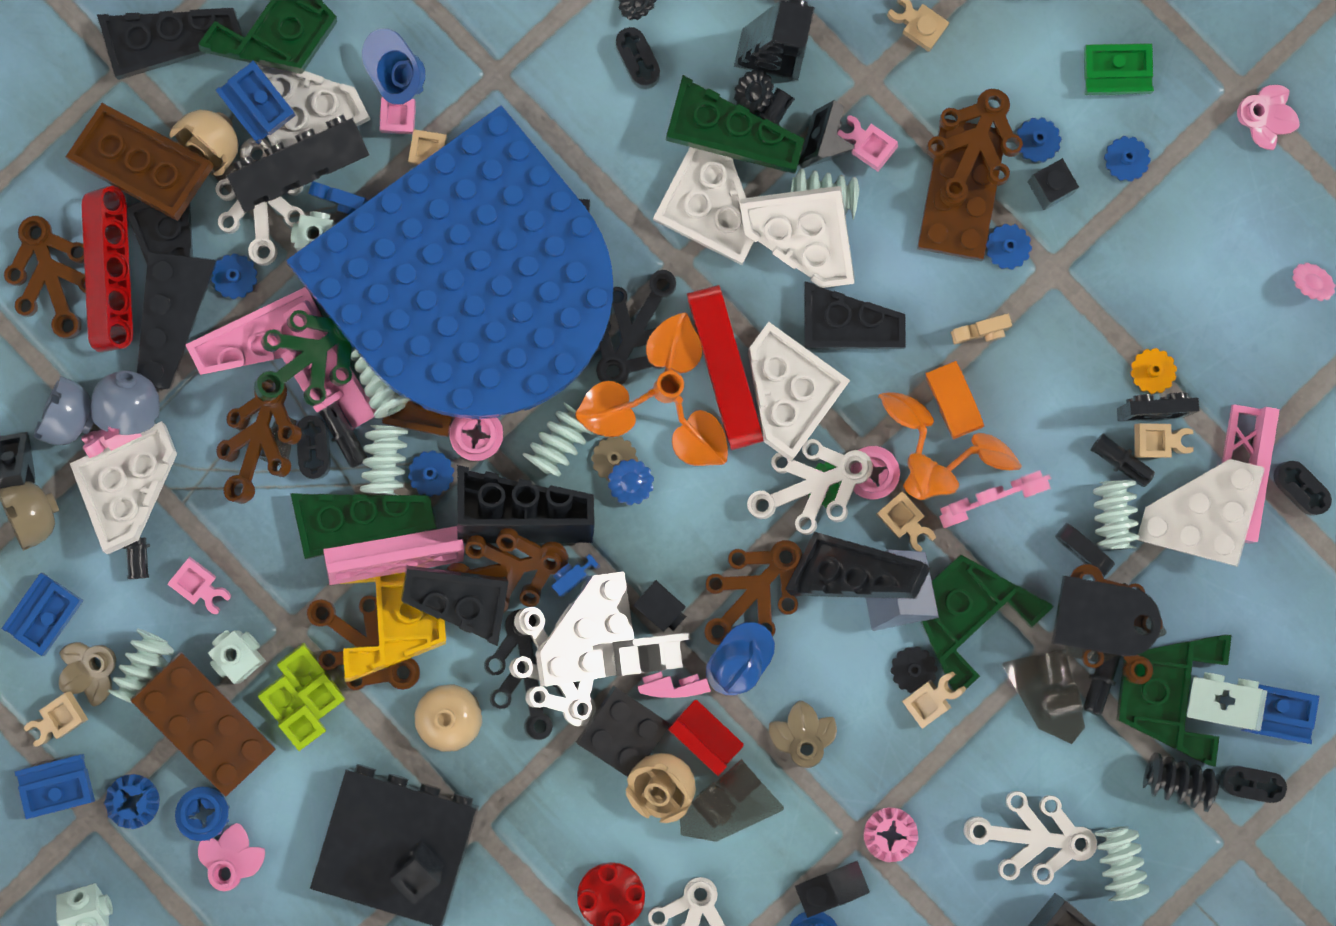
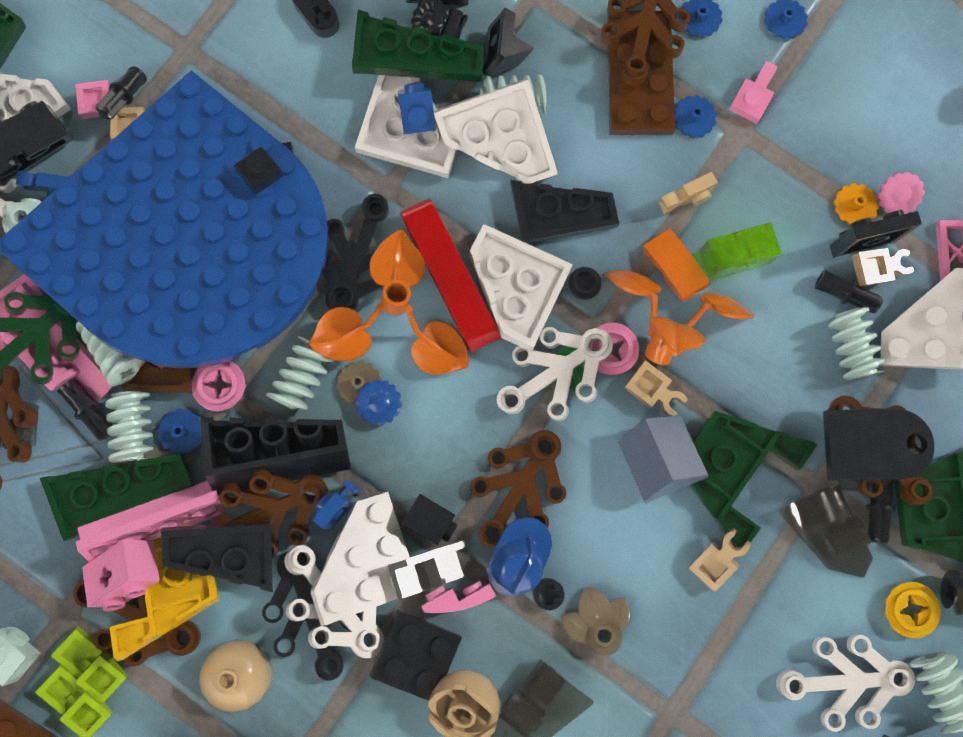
camera: 15 degrees left, 5 degrees down
(322, 448) = (51, 430): black beam -> none
(359, 601) = (120, 574): none -> bright pink brick
(393, 66) = (82, 52): blue piece -> none
(426, 116) = (121, 93): none -> black axle
(555, 230) = (258, 170): none -> black plate
(706, 737) = (500, 644): red panel -> none
(723, 190) = (416, 108): none -> blue bracket
(768, 707) = (556, 600): none -> black bush
(854, 570) = (618, 445): black wing -> none
(858, 400) = (584, 283): none -> black plate
(871, 146) = (549, 46): bright pink plate -> none
(880, 822) = (694, 695): bright pink gear -> none
(913, 669) = (692, 533): black piece -> none
(1020, 399) = (740, 251): none -> clear neon green brick
(1029, 484) = (774, 324): bright pink plant -> none
(1053, 184) = (725, 49): black brick -> none
(1073, 238) = (753, 96): none -> bright pink plate
(1084, 549) = (832, 382): black beam -> none
(1121, 794) = (924, 619): none -> yellow gear
(1199, 370) = (901, 193): none -> bright pink piece

